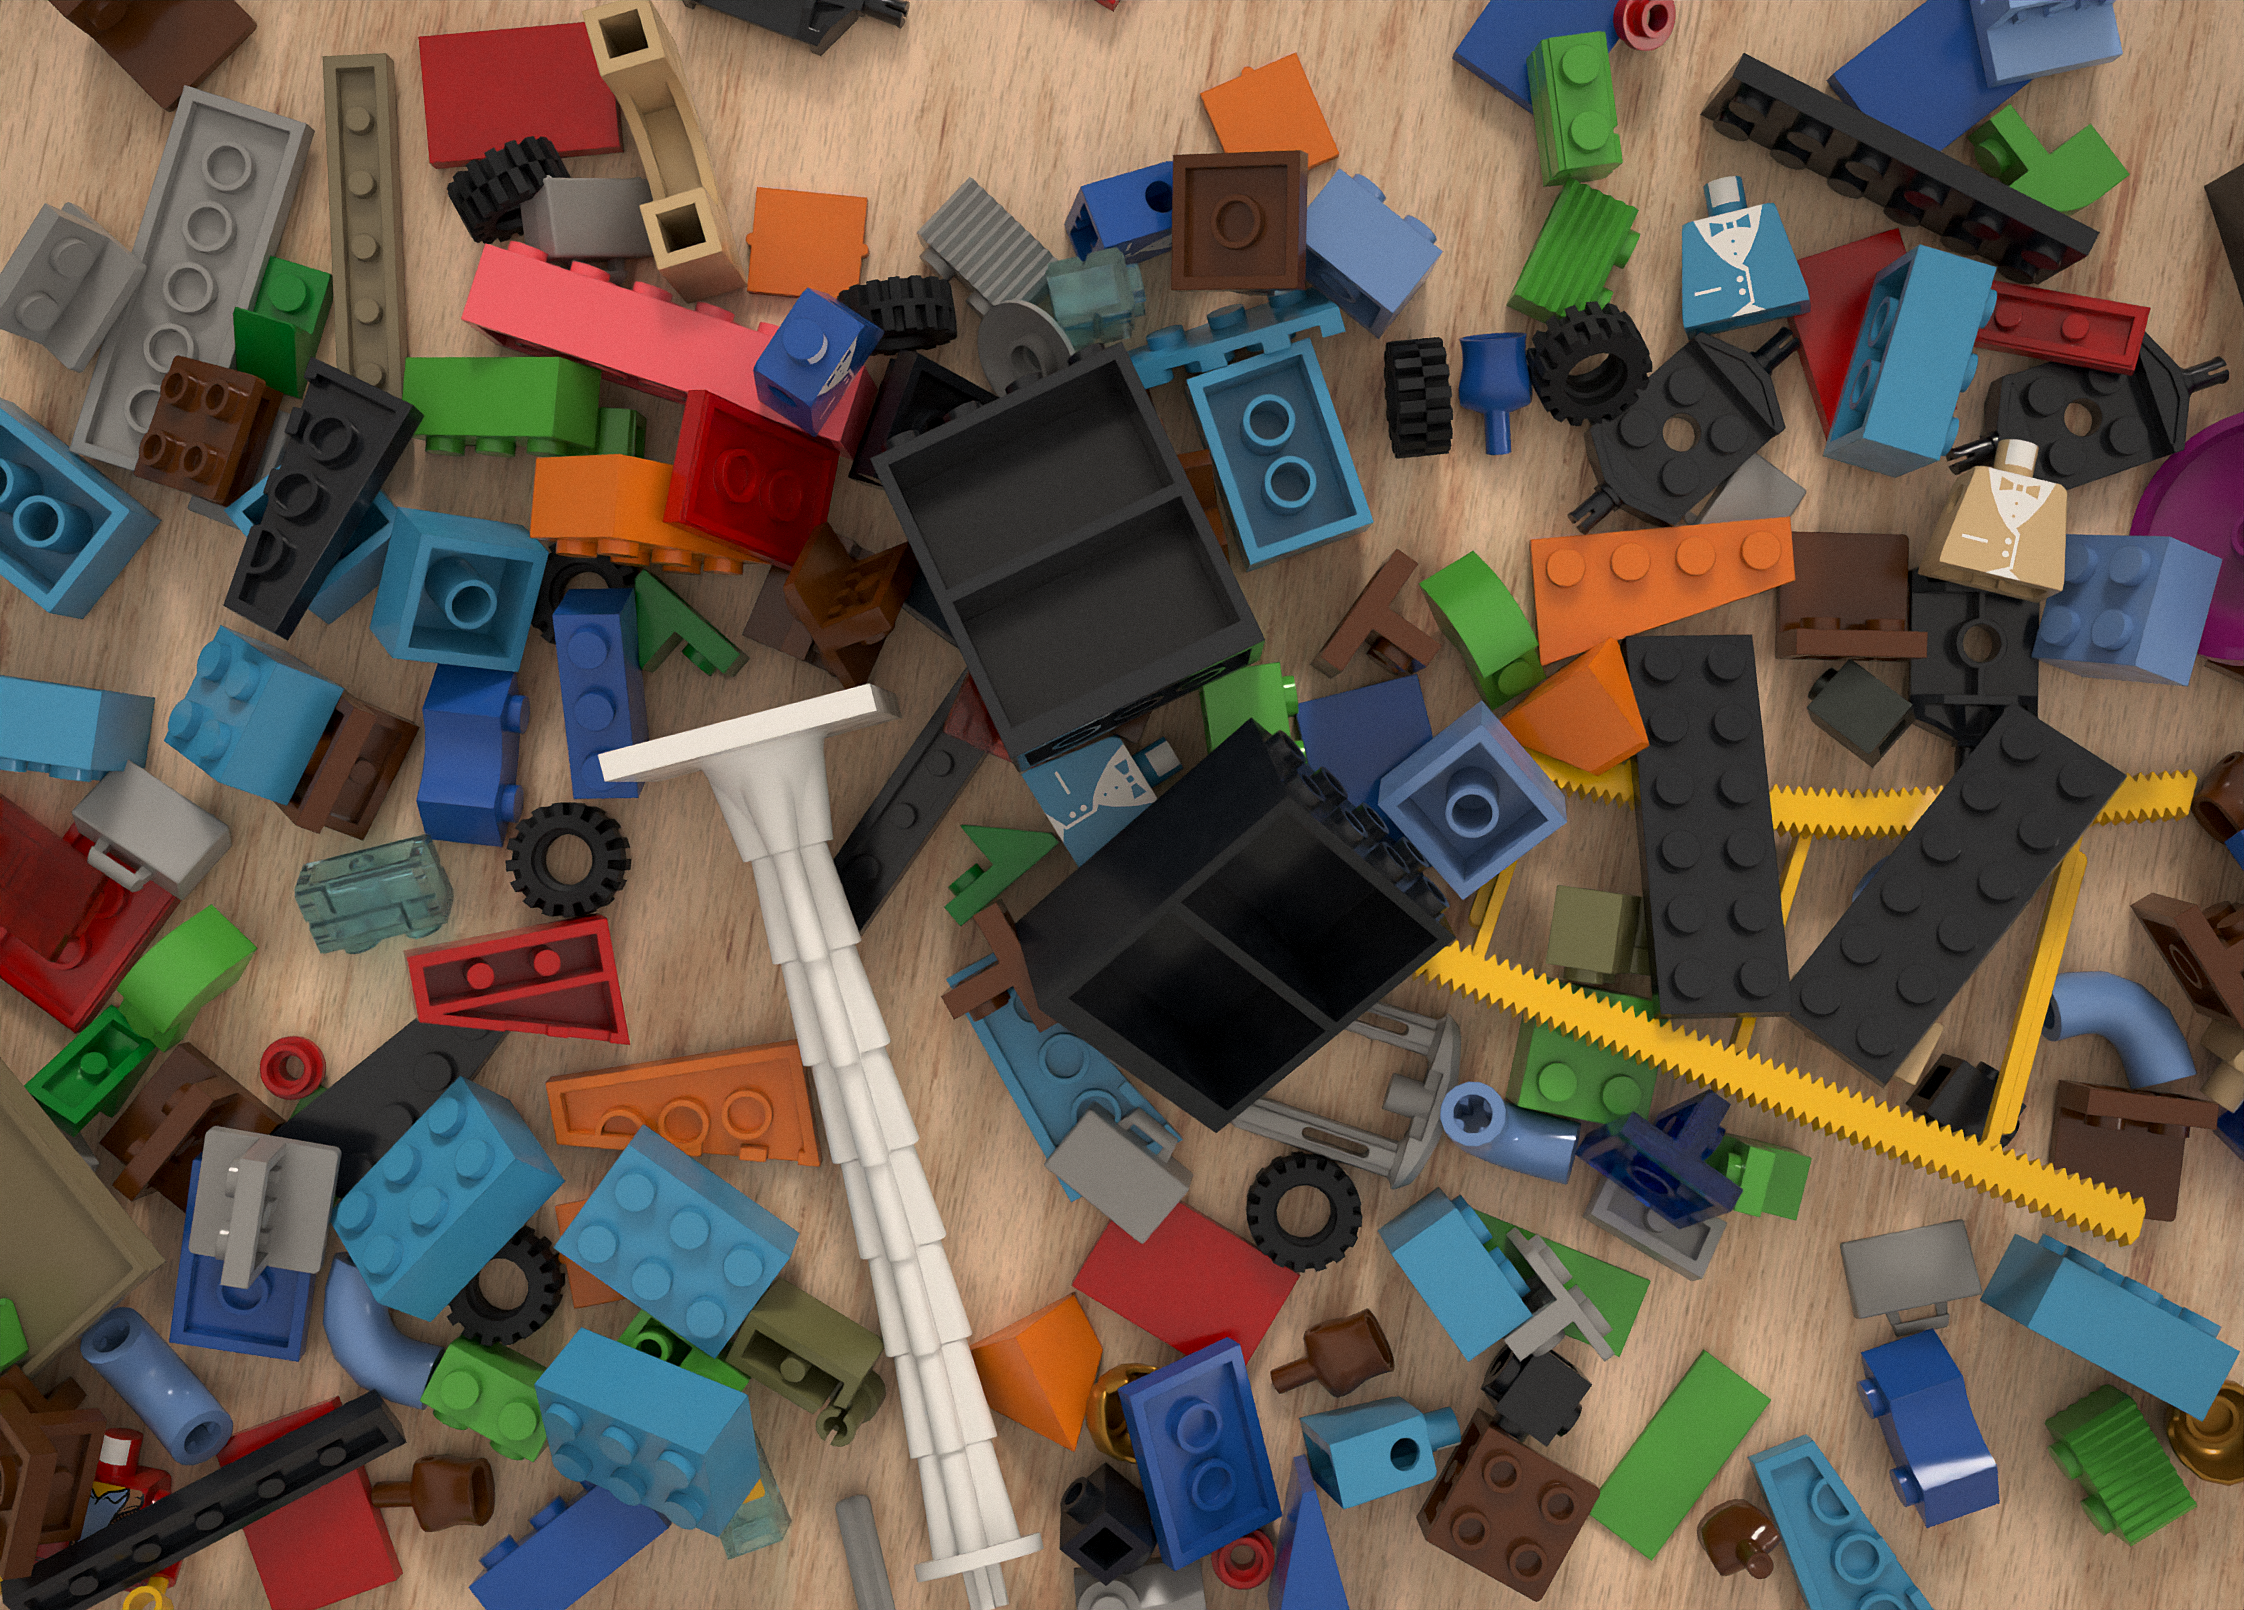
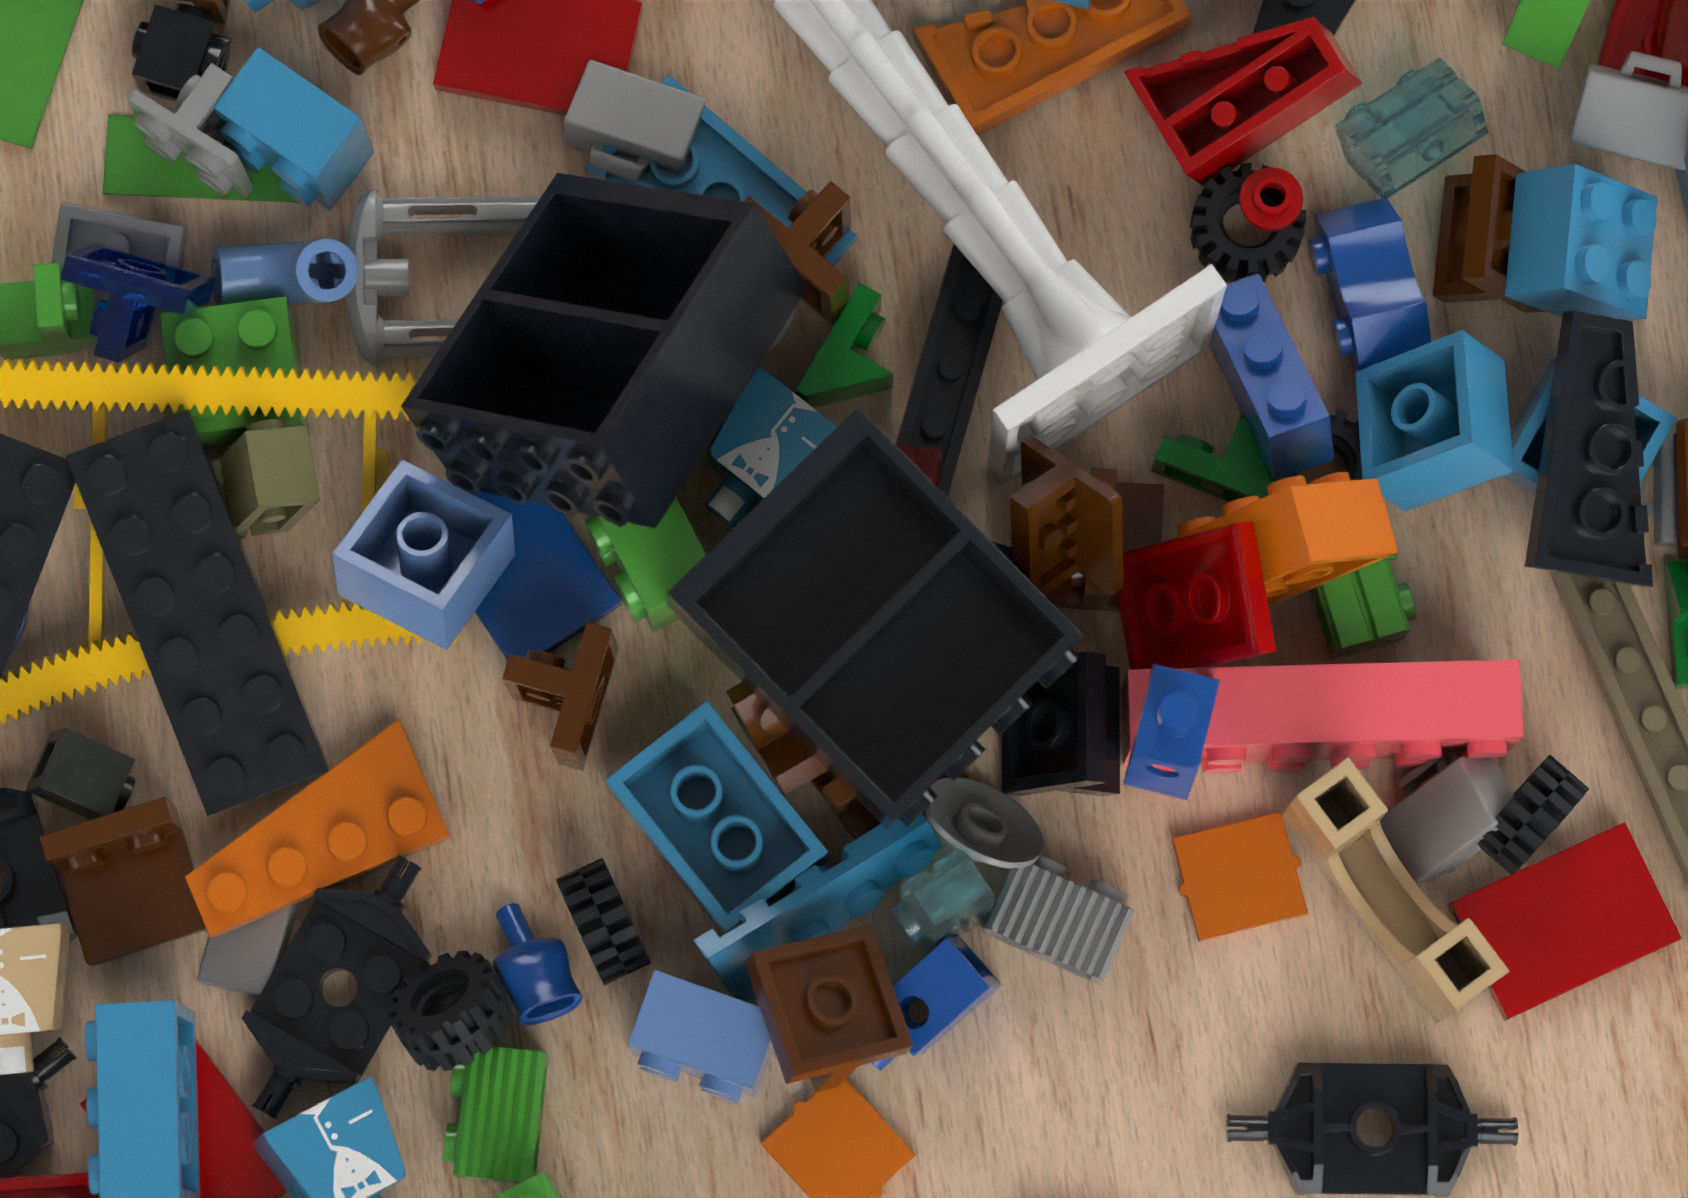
camera: 160 degrees right, 10 degrees down
(503, 404) = (1461, 607): bright green brick -> none
(554, 866) = (1268, 217): none -> red plate
(910, 311) = (1122, 827): black tyre -> none
(1322, 1247) = (432, 108): black tyre -> none
(1485, 628) = (466, 730): bright green brick -> none
(1583, 713) = (348, 680): orange slope -> none

